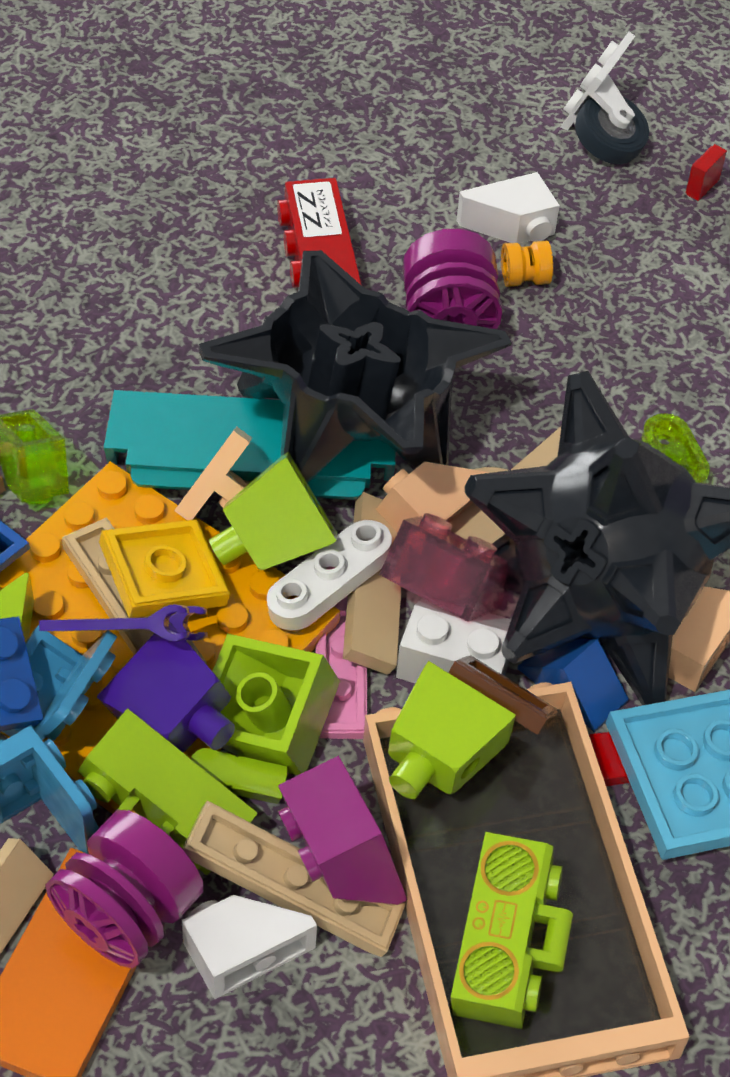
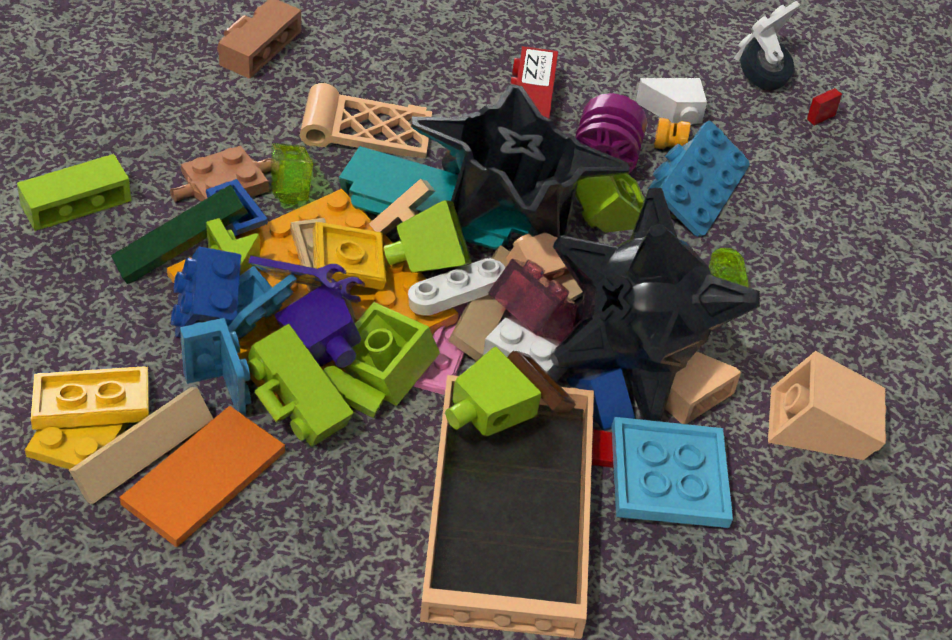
camera: 15 degrees right, 5 degrees down
(46, 349) = (324, 121): none -> light nougat piece
(125, 888) = (250, 428): magenta wheel -> none
(244, 940) = (319, 487): white slope -> none
(278, 875) = (362, 458): tan tile -> none
(339, 835) = (399, 437): magenta slope -> none
(494, 391) = (610, 202): none -> lime slope
(495, 957) = (481, 523): lime piece -> none
(584, 316) = (700, 177): none -> dark azure bracket

